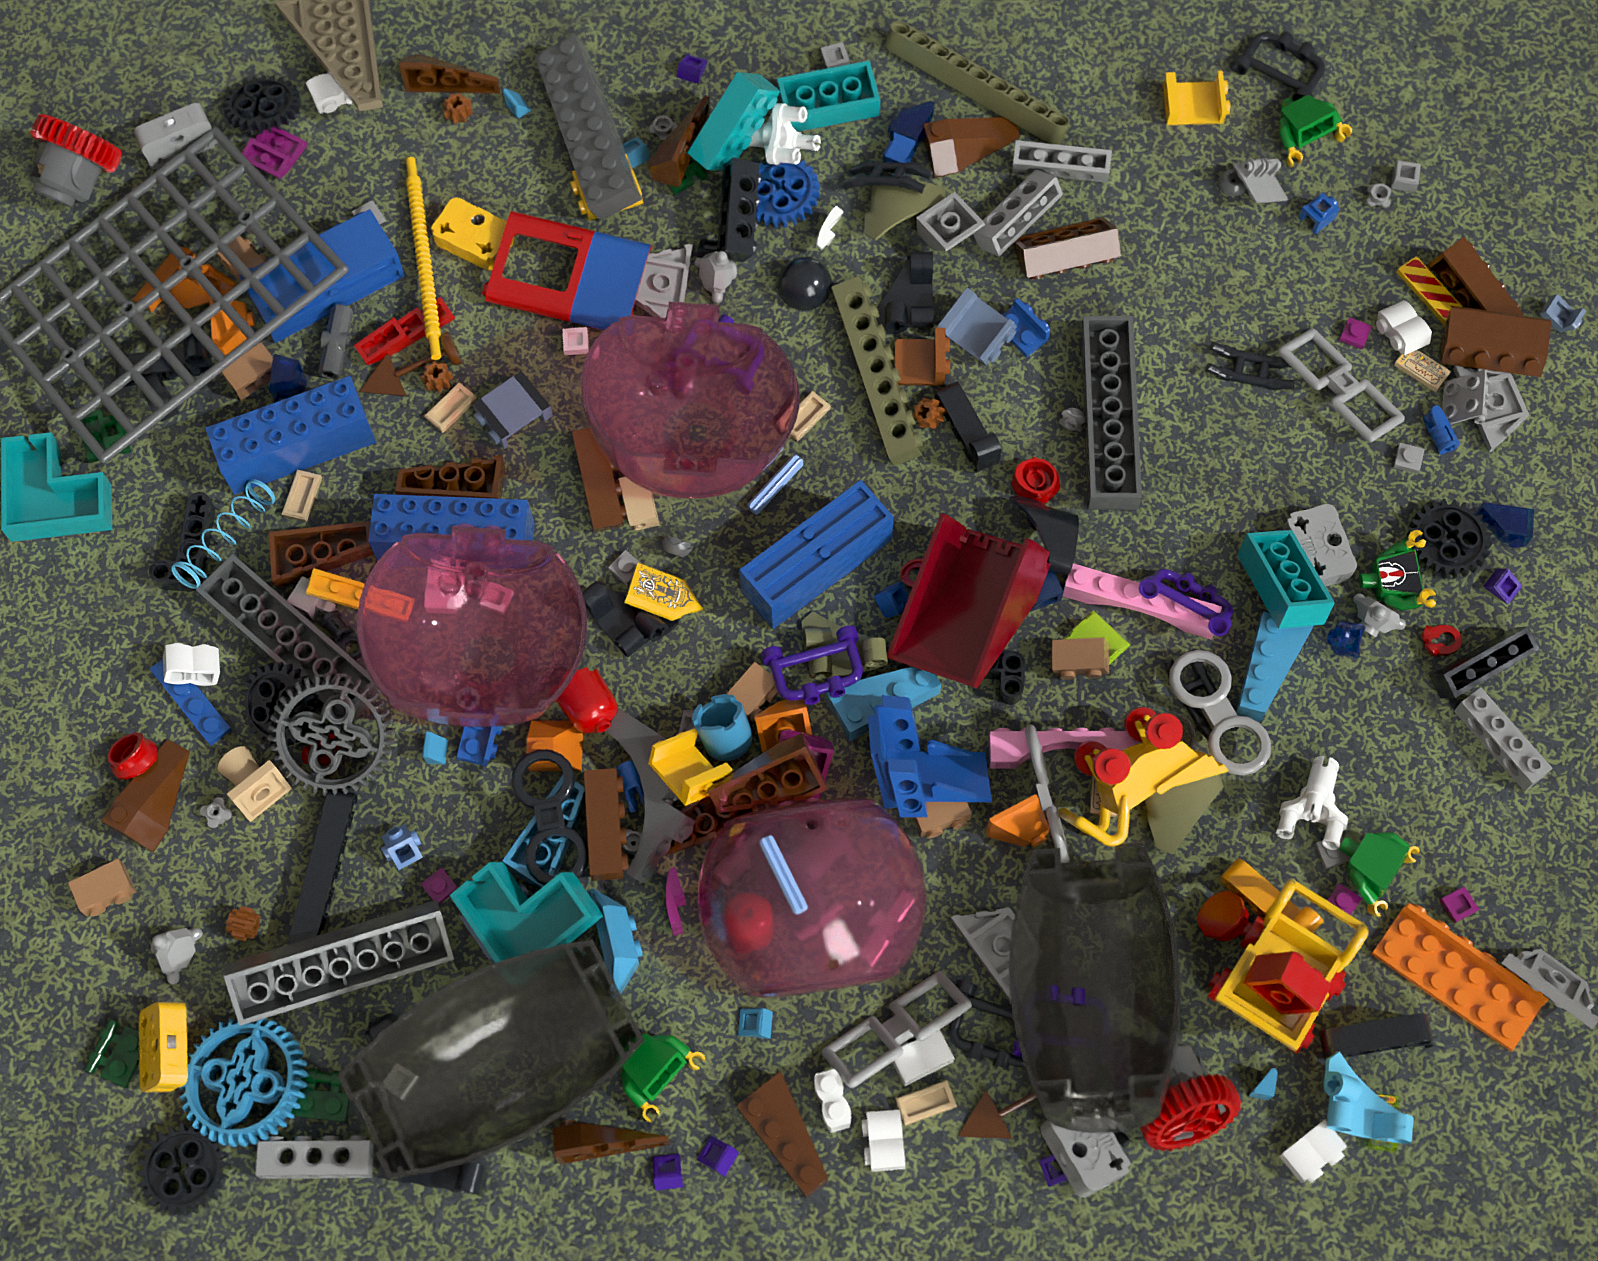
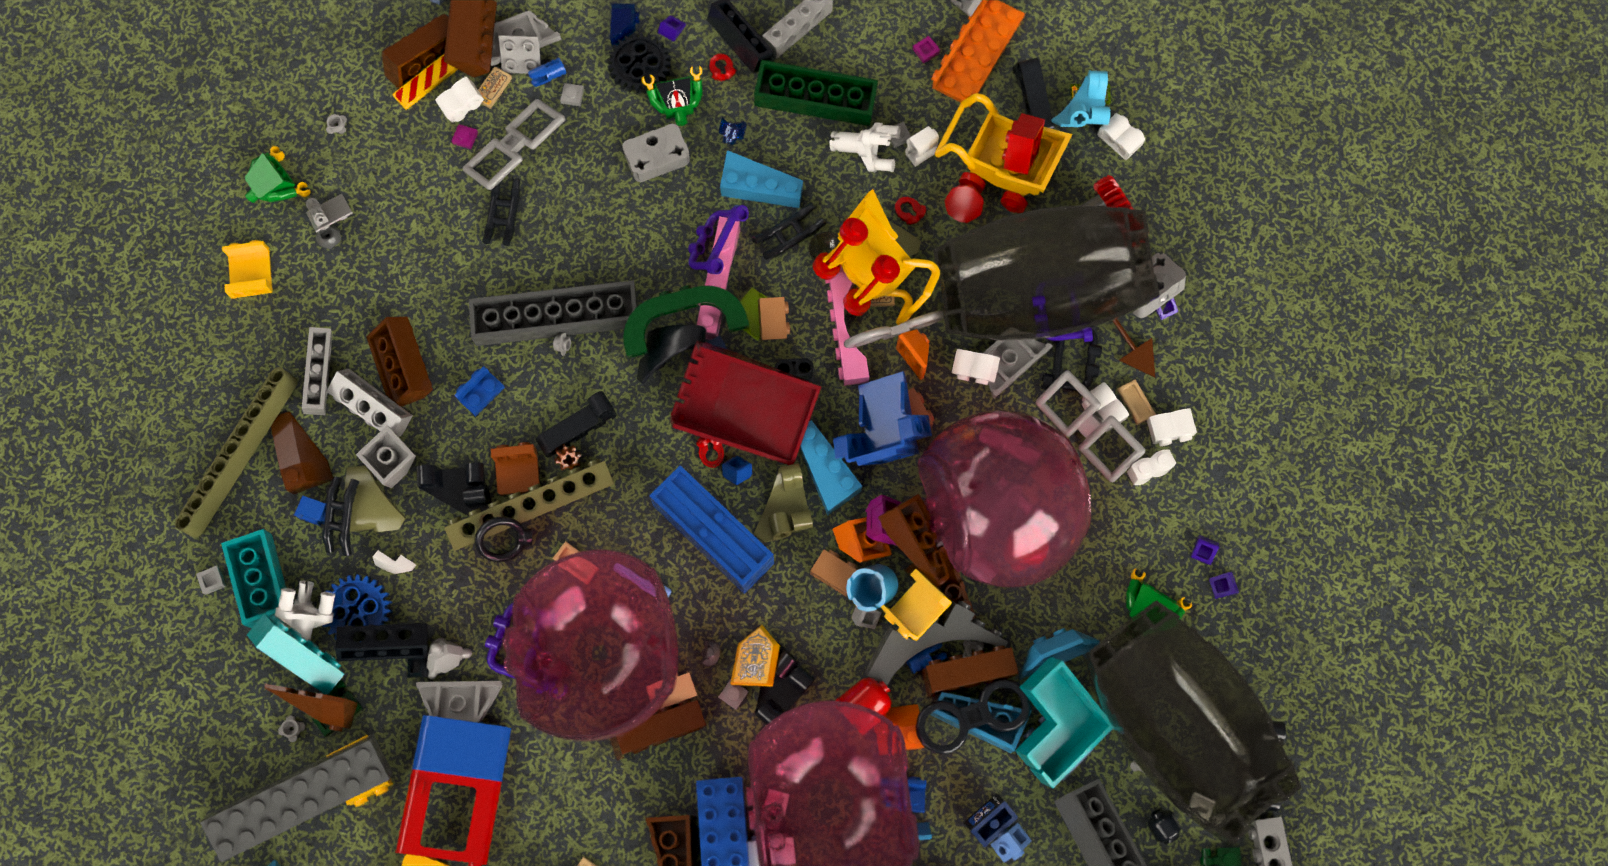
camera: 100 degrees left, 5 degrees up
(431, 827) = (990, 820): none -> dark blue brick
(439, 886) = (1034, 806): magenta plate -> none
(510, 408) = (595, 821): sand blue panel -> none
(575, 341) = (520, 774): plate -> none
(587, 1141) = (1216, 628): reddish brown wedge -> none
(636, 151) = (317, 750): dark azure slope -> none
(674, 899) = (1017, 606): magenta slope -> none
(691, 68) = (225, 711): dark purple slope -> none
(755, 1023) = (1100, 535): dark azure slope -> none
(781, 1129) = (1177, 504): reddish brown wedge -> none
(783, 875) = (1021, 499): light blue axle -> none
(804, 283) = (448, 578): black piece -> none
(810, 692) = (835, 519): dark purple bar -> none
(840, 360) = (524, 538): none -> black piece
(911, 122) = (281, 502): clear blue slope -> none
(977, 327) = (484, 425): sand blue panel -> none
(992, 895) = (975, 366): none -> white brick
(1041, 480) = (618, 370): red hat -> none
(1097, 597) = (679, 301): none -> dark green arch
(1220, 711) = (805, 214): light grey bar -> none
(1224, 860) = (920, 210): none -> red piece
(1261, 894) = (945, 174): light orange beam -> none
(1266, 1088) = (1081, 169): dark azure slope -> none
(1284, 42) = (197, 187): black bar -> none
(1285, 579) = (692, 170): teal brick -> none
(1309, 870) = (922, 145): none -> white brick
(1321, 211) = (354, 165): blue window -> none
(1344, 899) = (938, 124): magenta plate -> none
(1376, 864) = (908, 101): green torso -> none
(1377, 616) = (709, 111): light grey rock -> none
(1395, 749) = (815, 93): none -> dark green brick
(1405, 176) = (317, 104): light grey slope -> none

